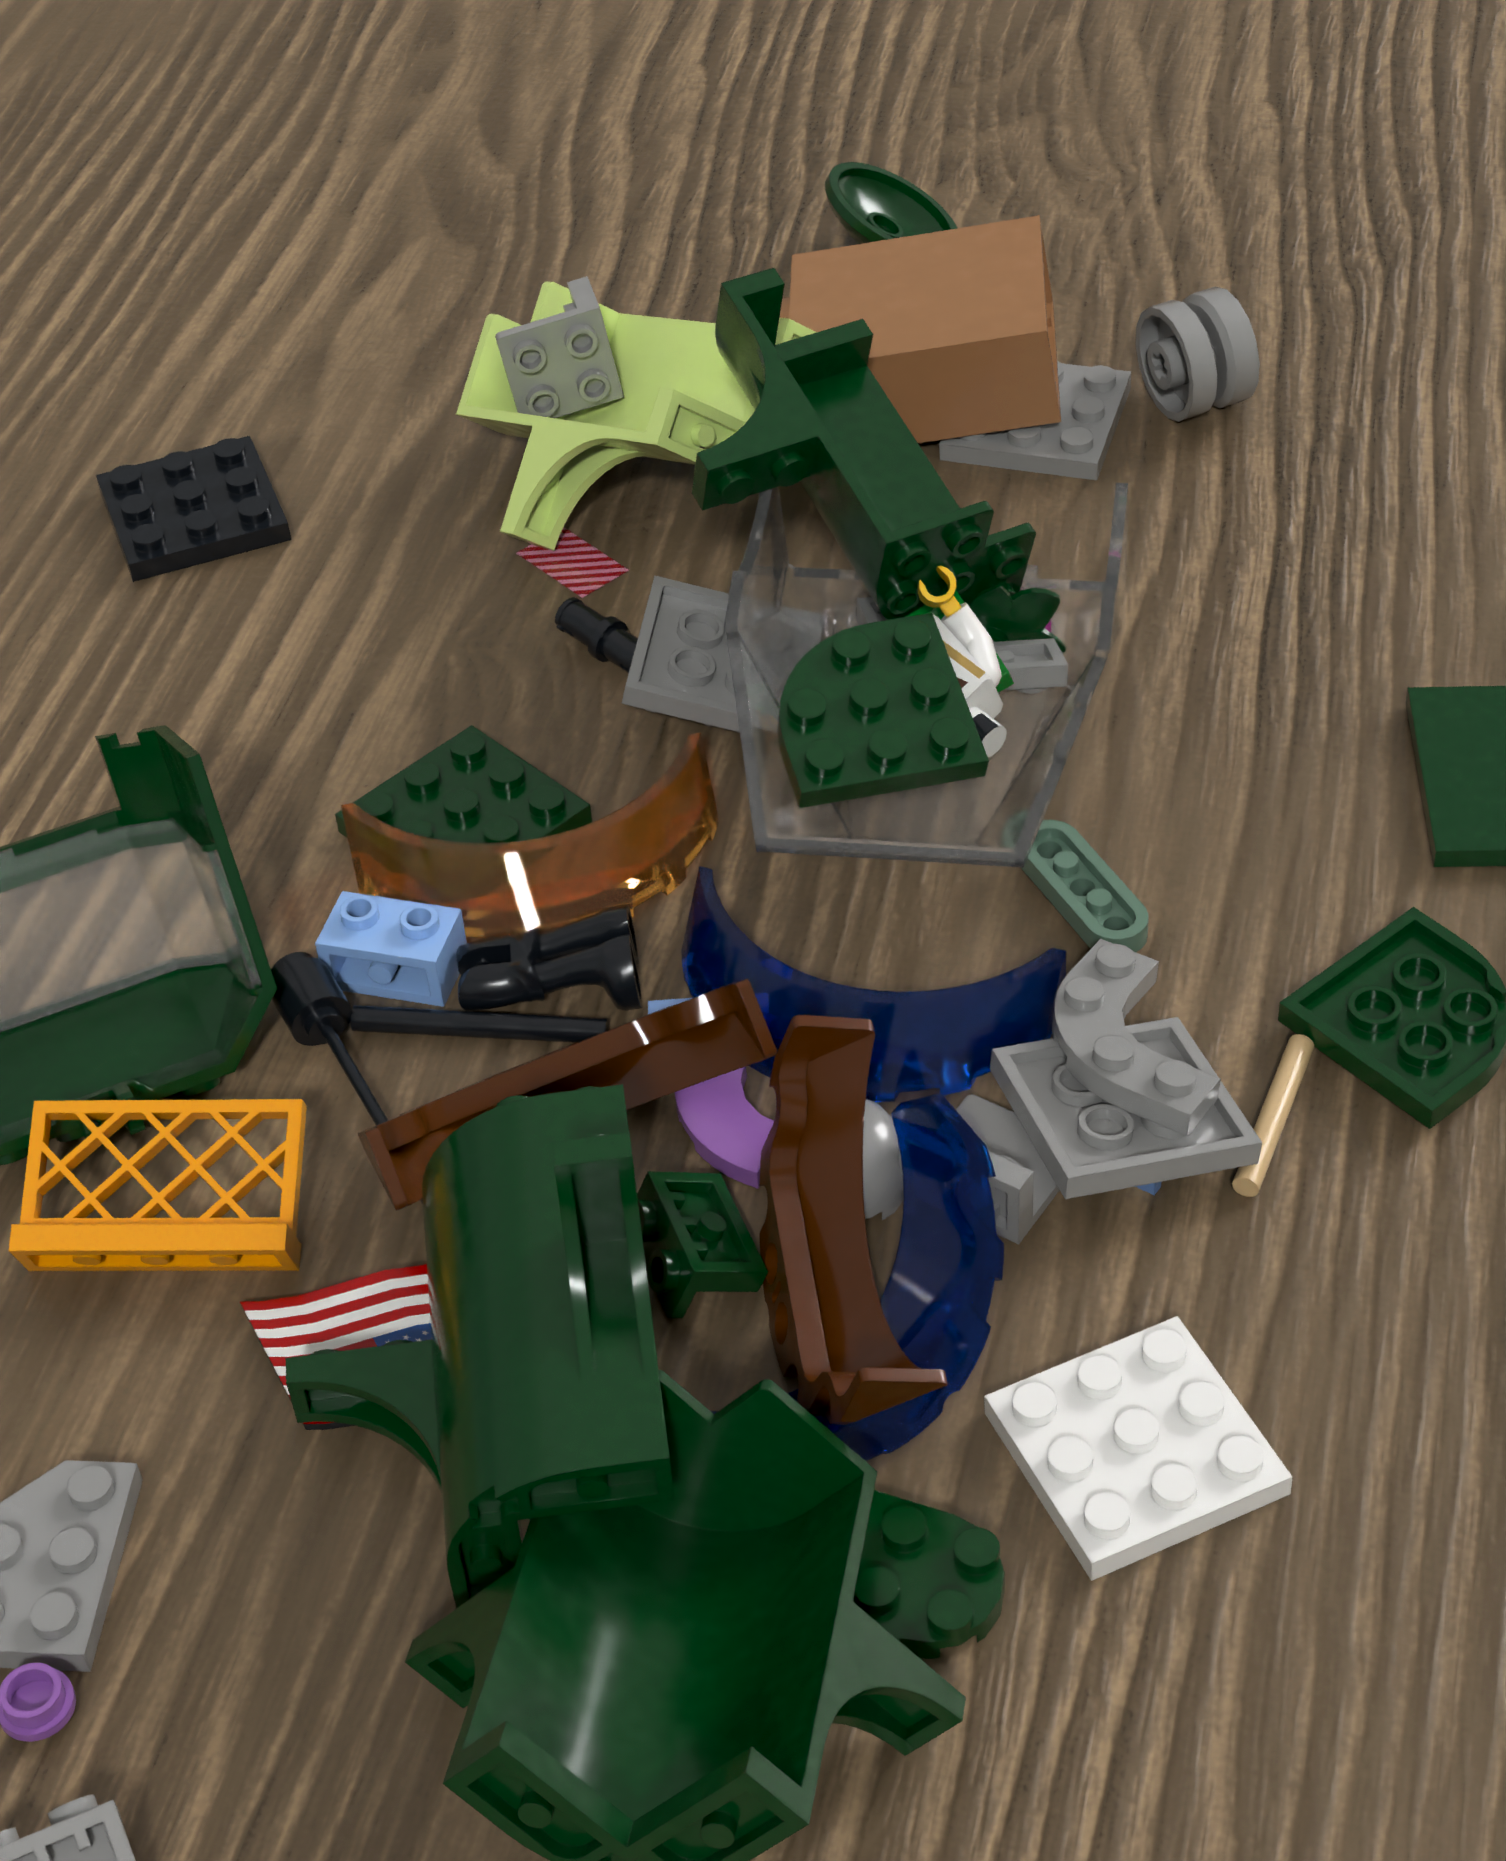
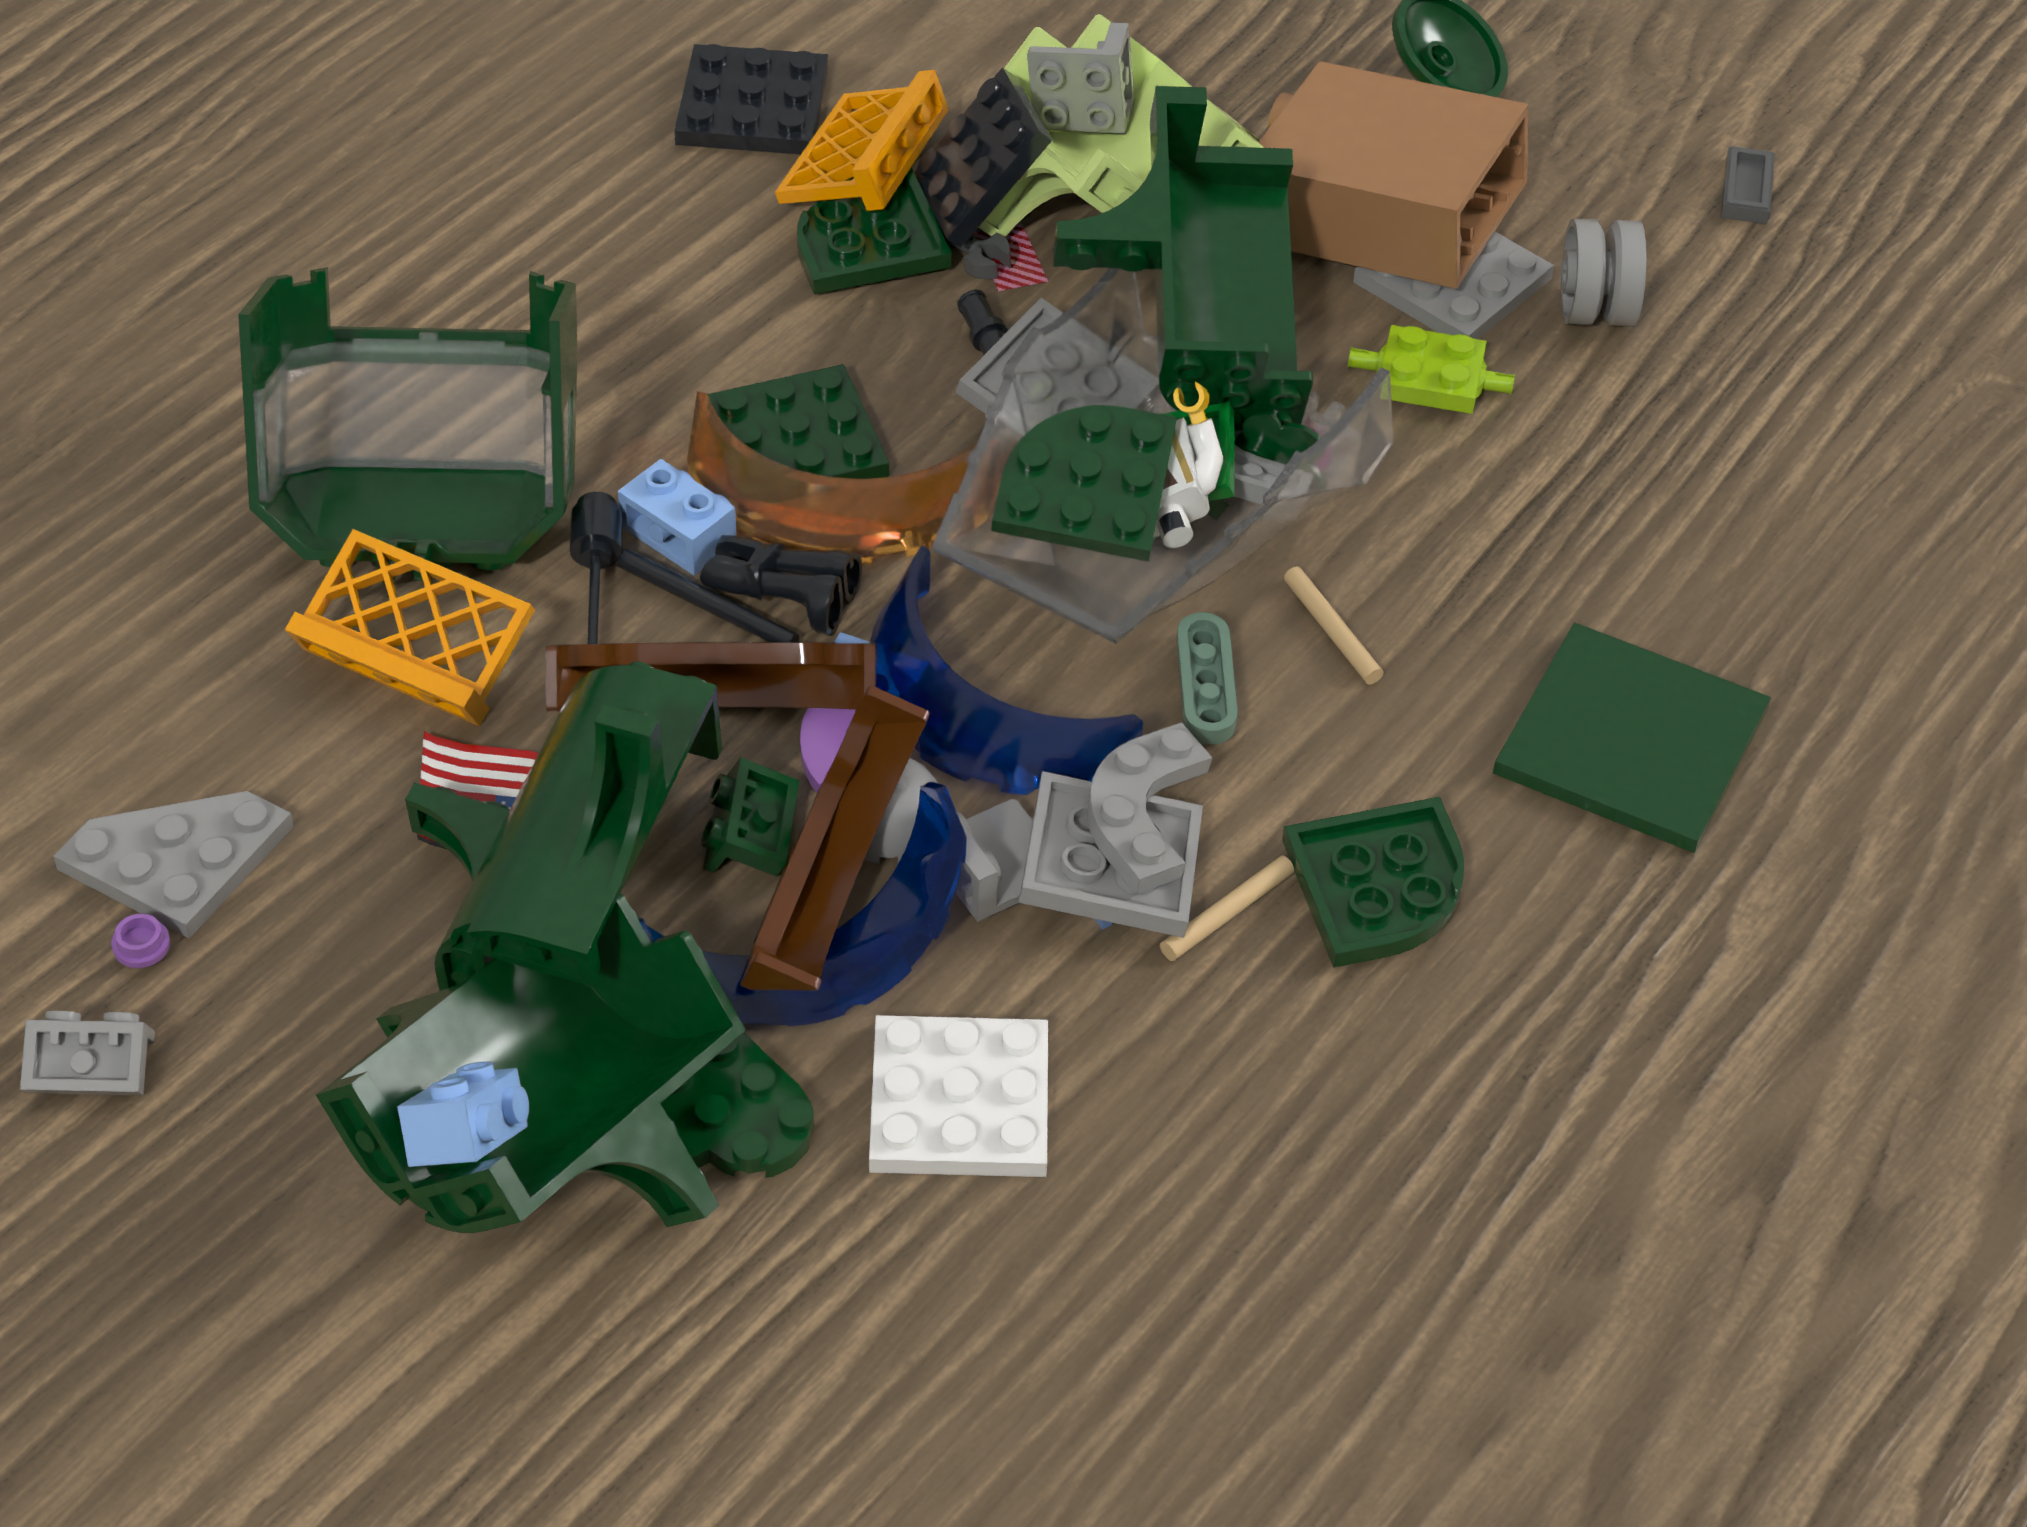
camera: 20 degrees right, 5 degrees up
(389, 492) = (870, 144): none -> light orange fence
(411, 586) = (852, 247): none -> dark green plate
(501, 463) = (981, 156): none -> black plate
(547, 568) = (980, 252): none -> dark grey bar
(642, 1724) = (463, 1115): none -> light blue brick
(1077, 506) = (1433, 368): none -> lime plate
(1168, 786) = (1333, 625): none -> tan bar
(1253, 241) = (1747, 185): none -> dark grey tile

